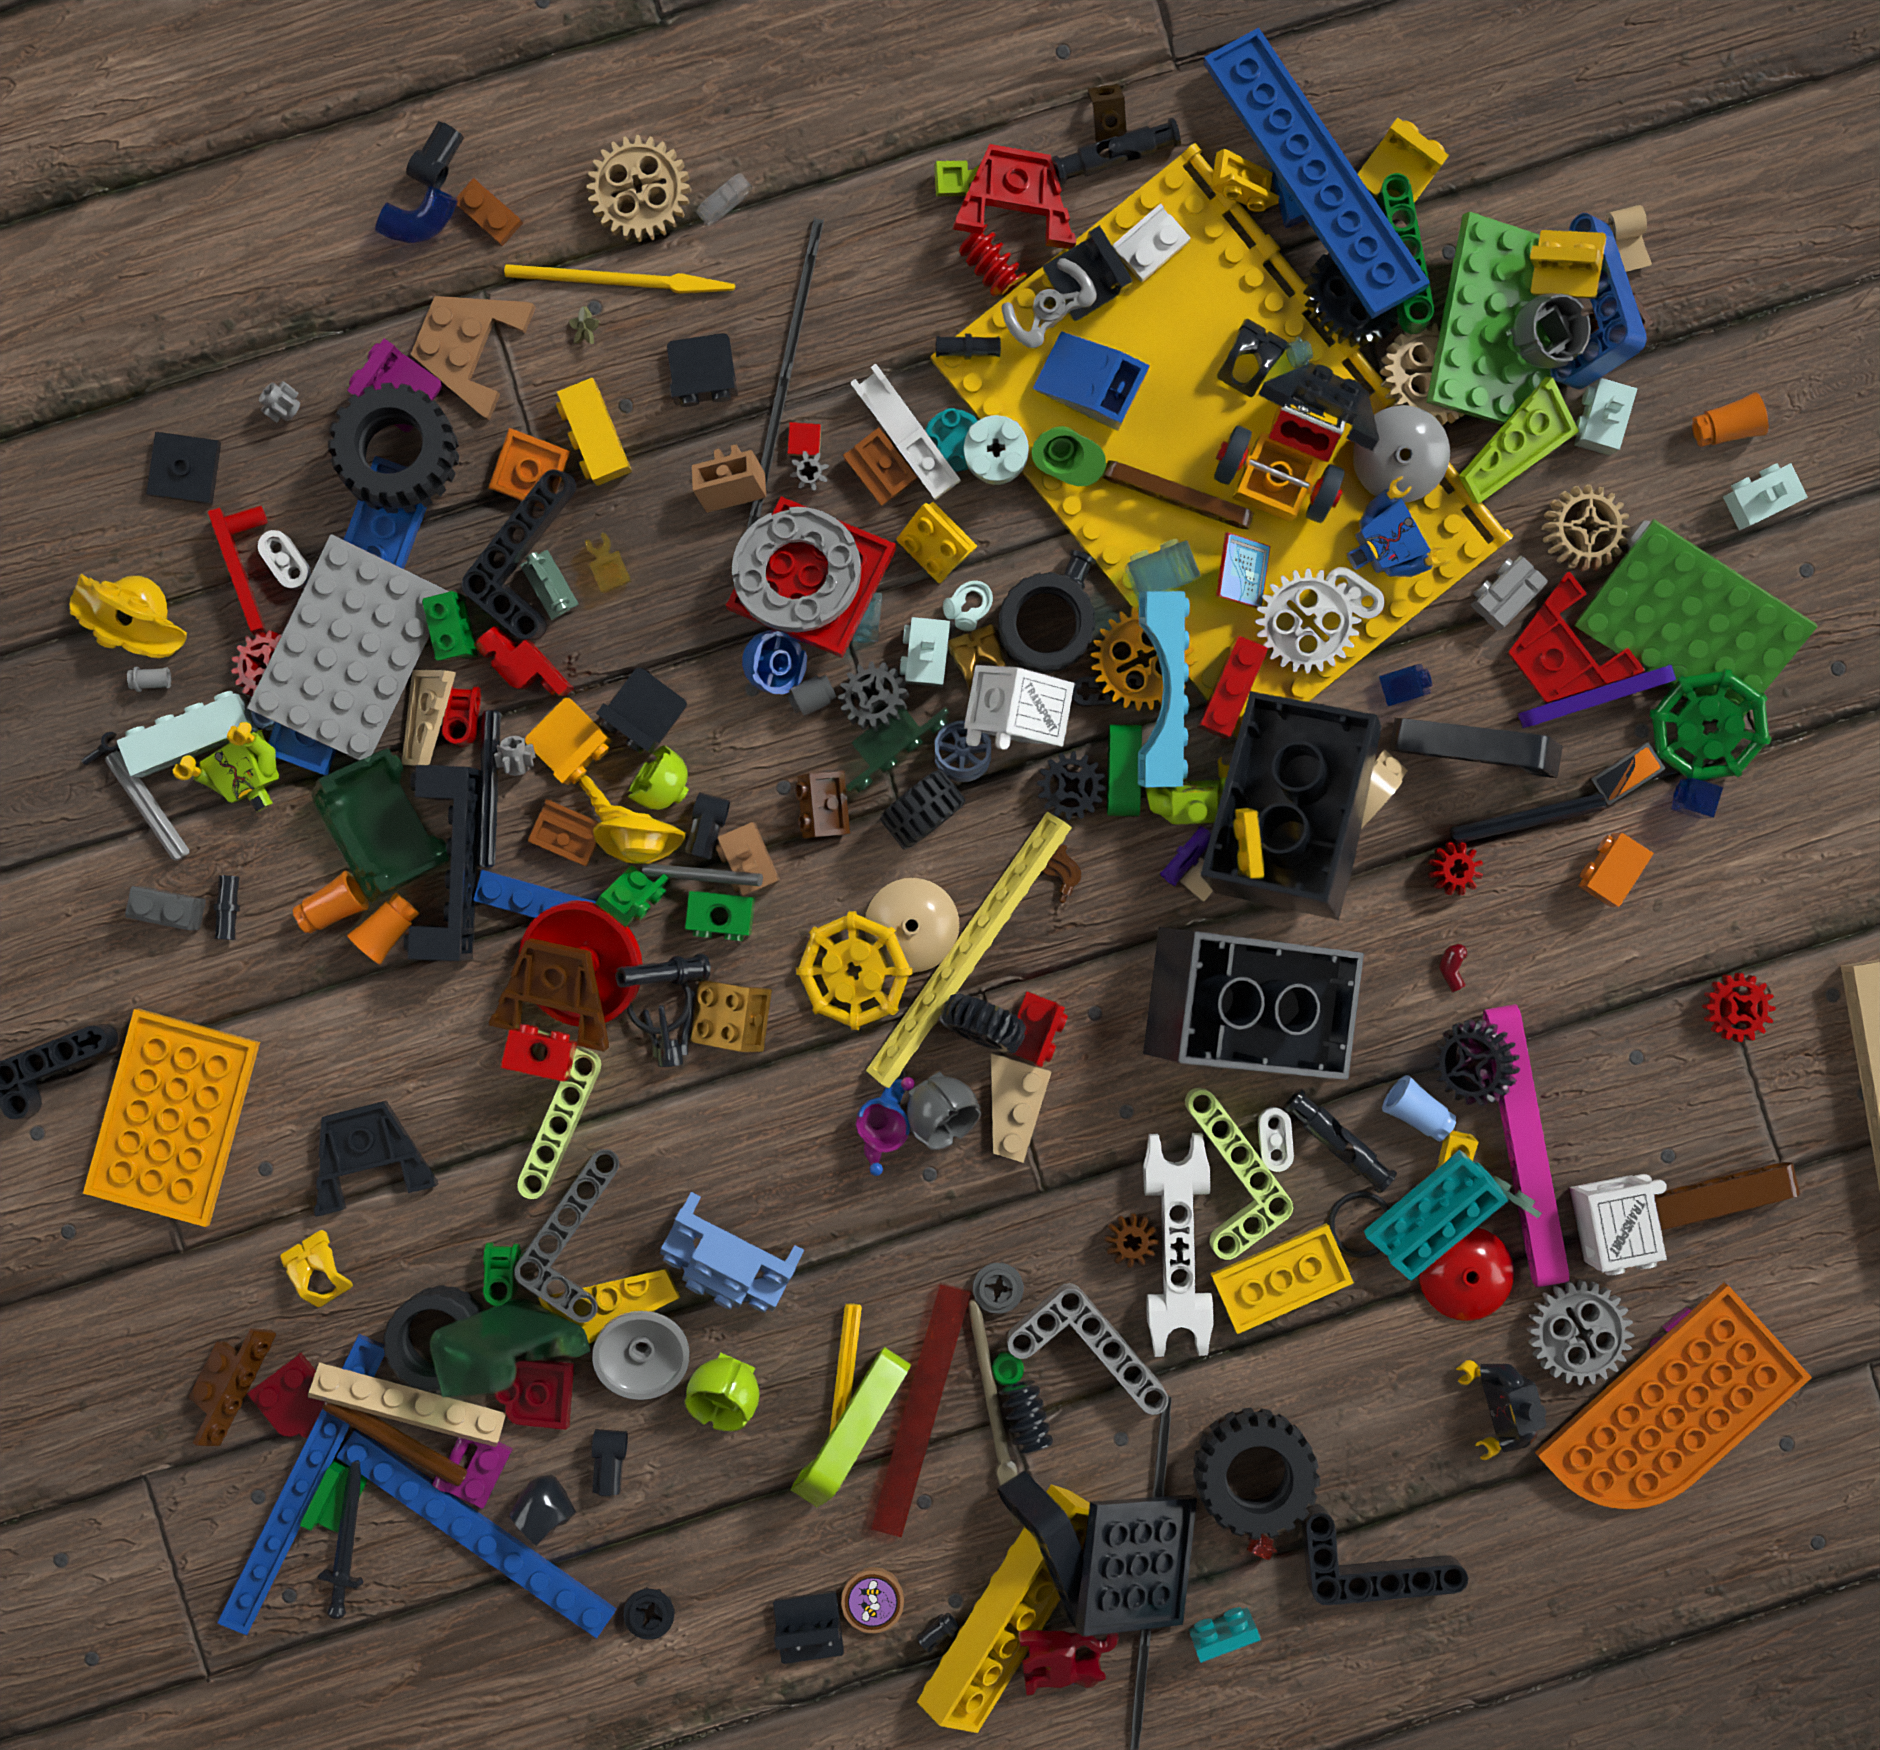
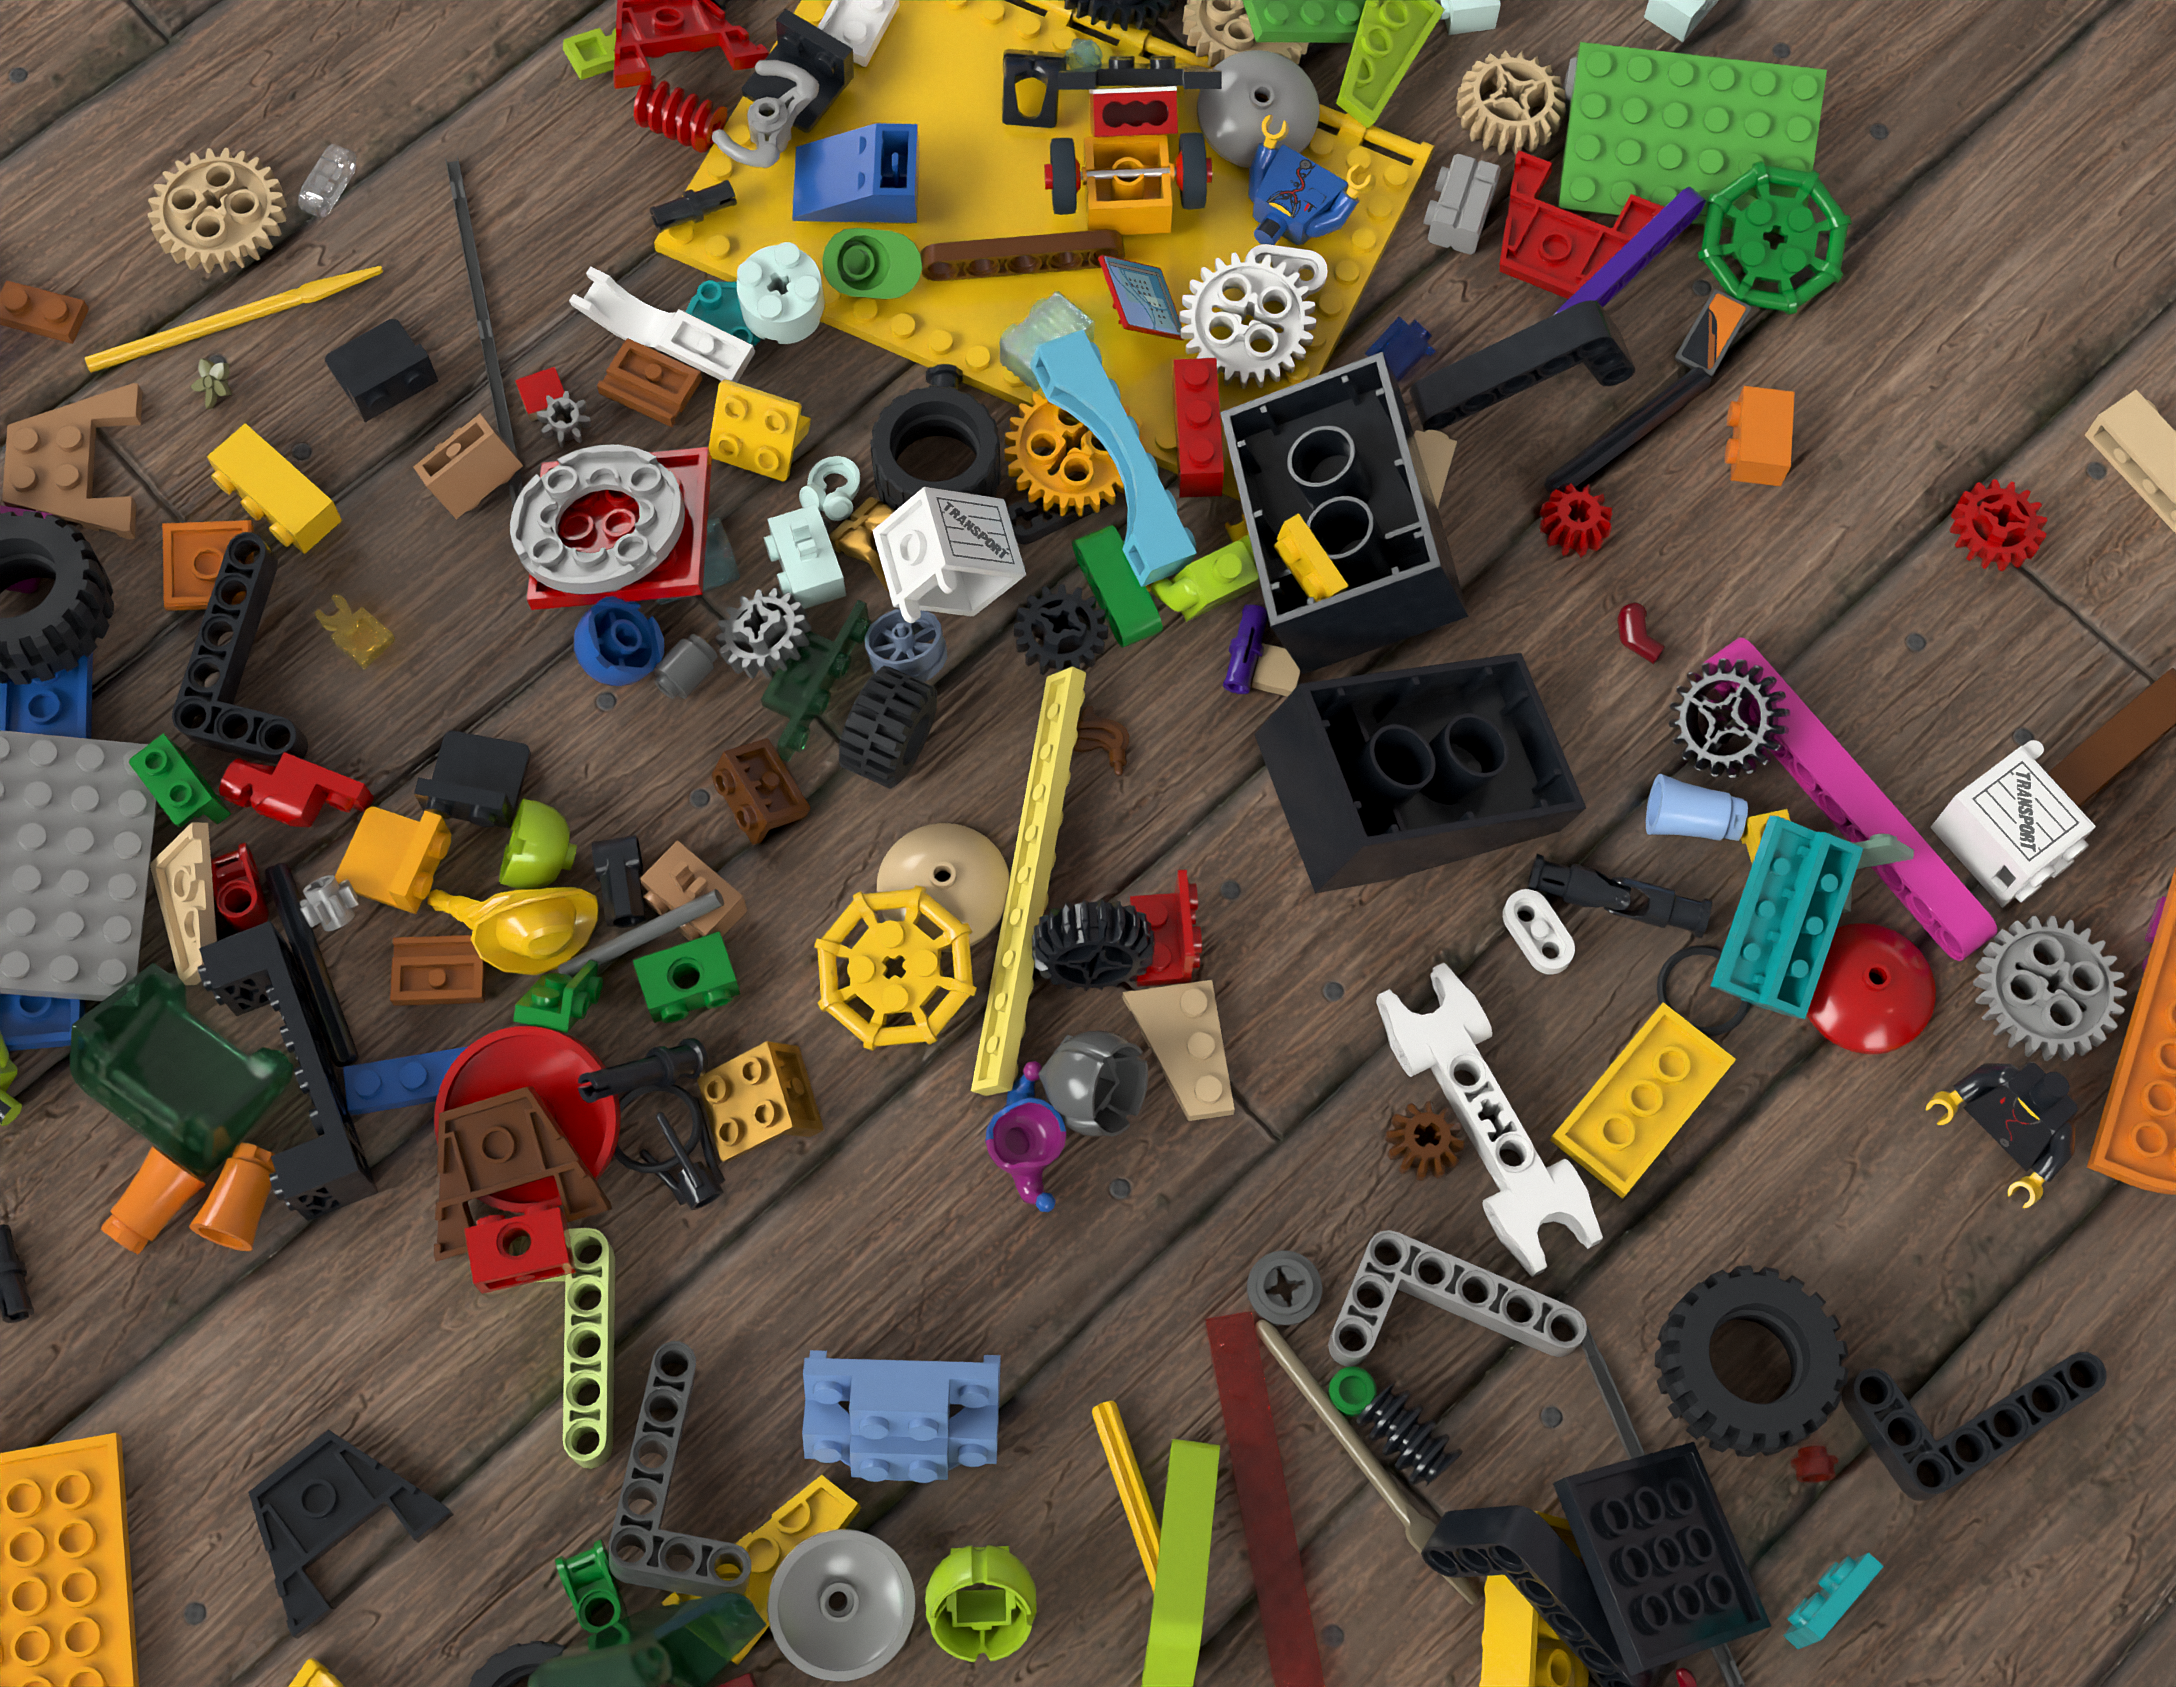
camera: 25 degrees left, 20 degrees down
(549, 584) = (288, 686): sand green hinge -> none
(1243, 1170) = (1517, 990): yellowish green beam -> none
(1696, 798) = (1807, 321): clear blue brick -> none

